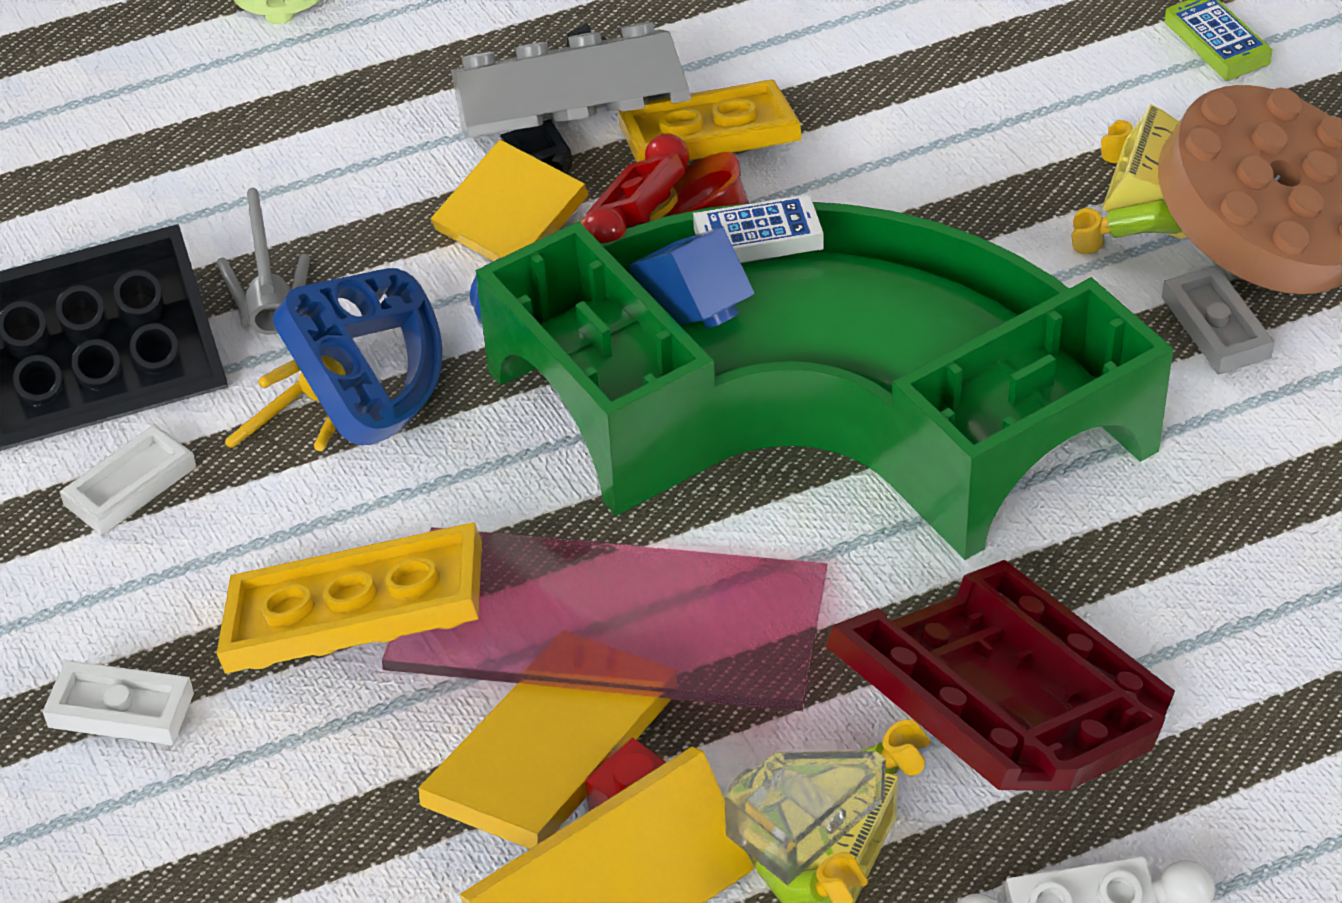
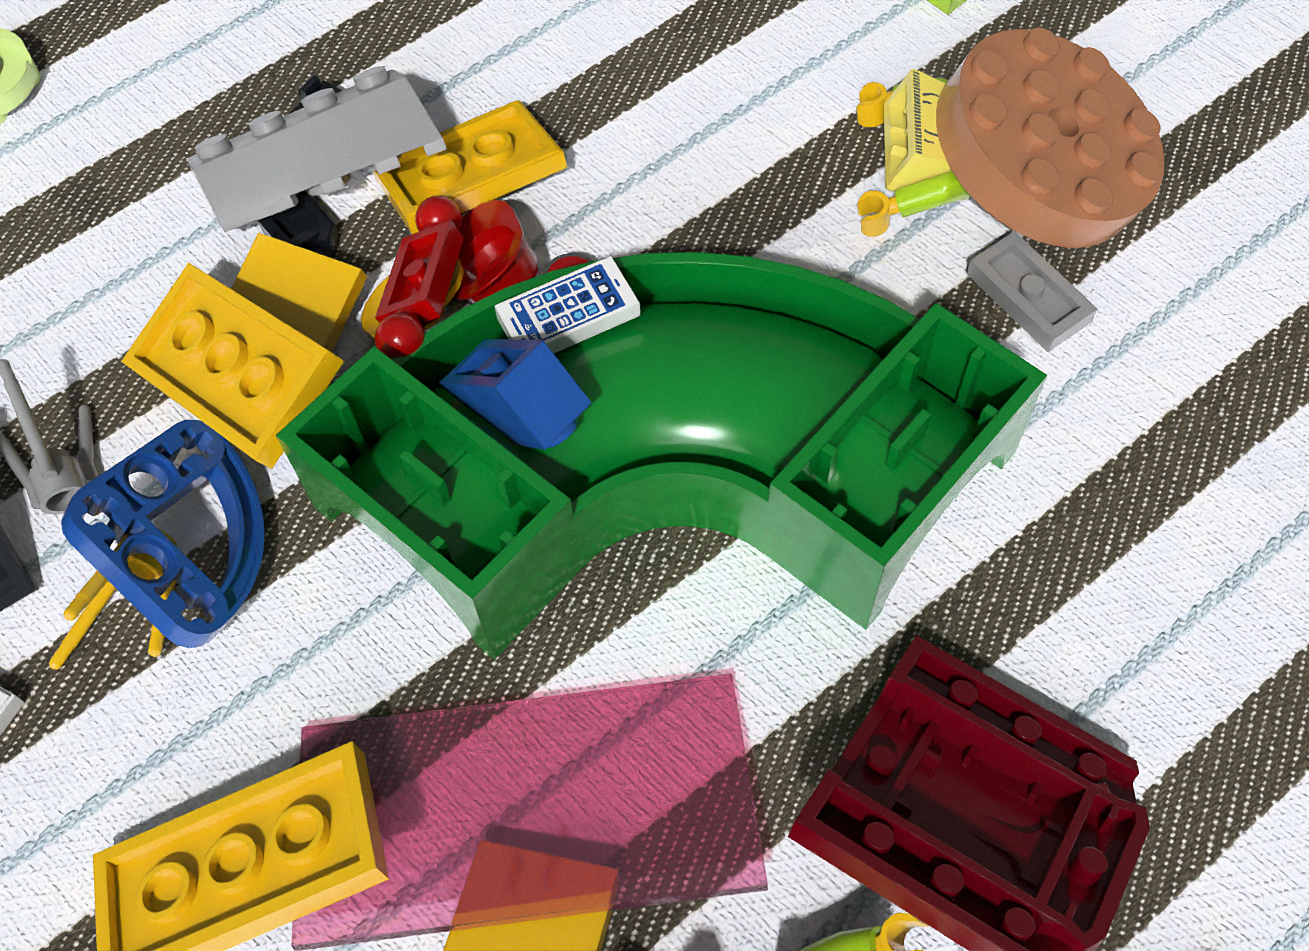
camera: 15 degrees left, 15 degrees up
(444, 228) = (230, 363): none -> yellow plate

